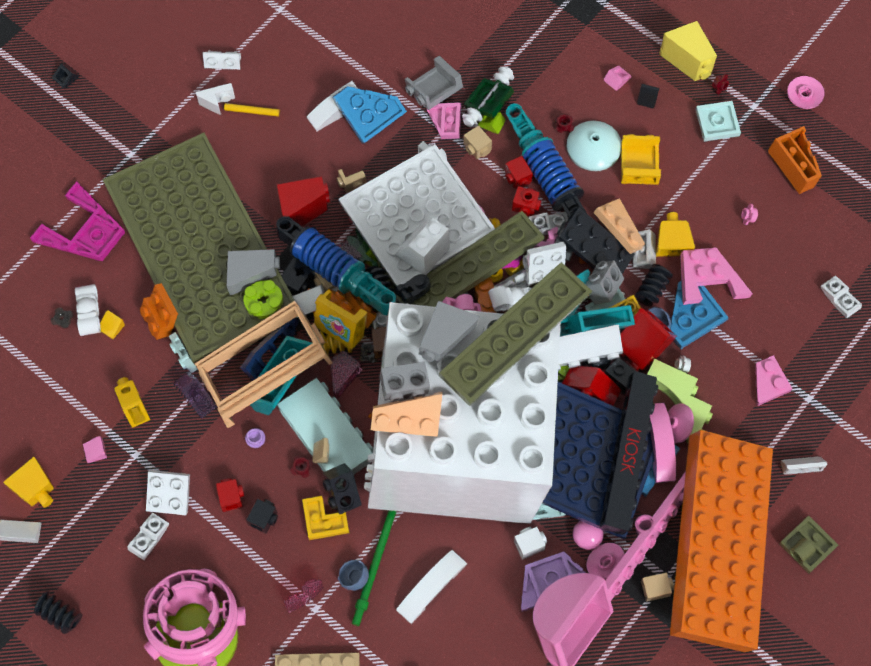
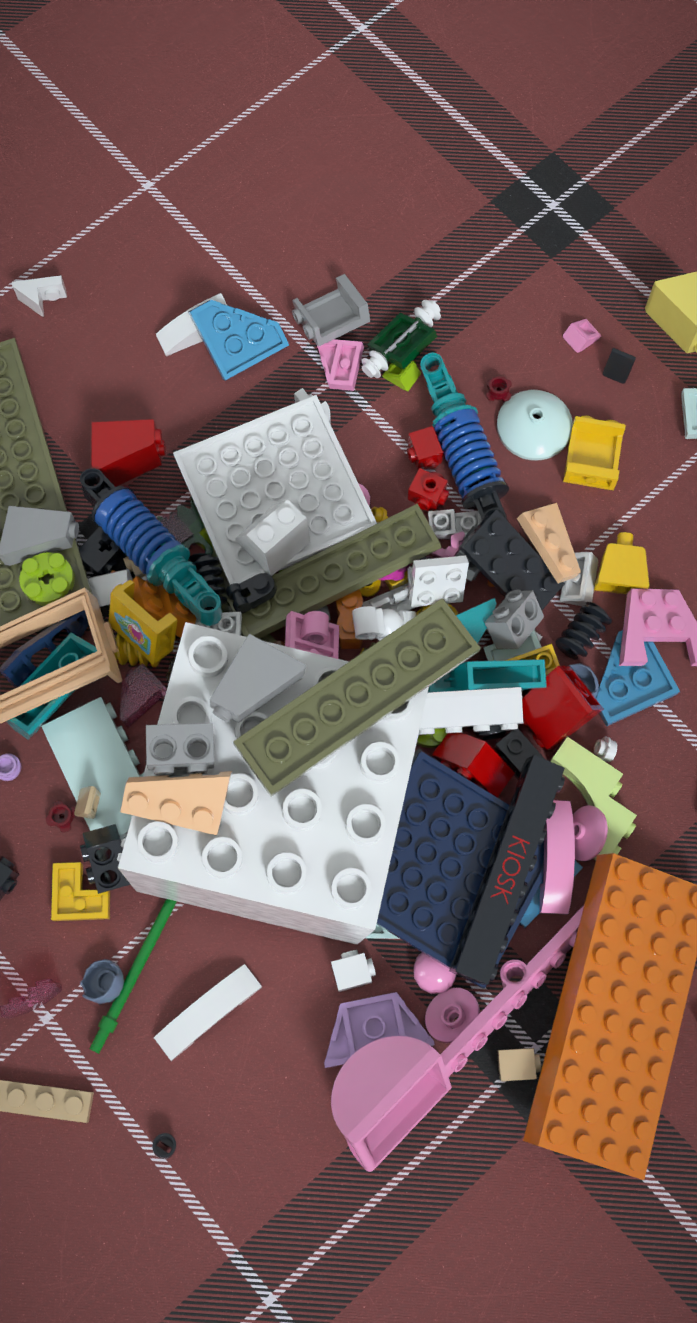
camera: 10 degrees right, 5 degrees up
(221, 60) = (57, 244): white hinge -> none
(251, 109) = (85, 315): yellow bar -> none
(351, 182) = (198, 431): tan bracket -> none
(477, 143) = (376, 400): tan brick -> none

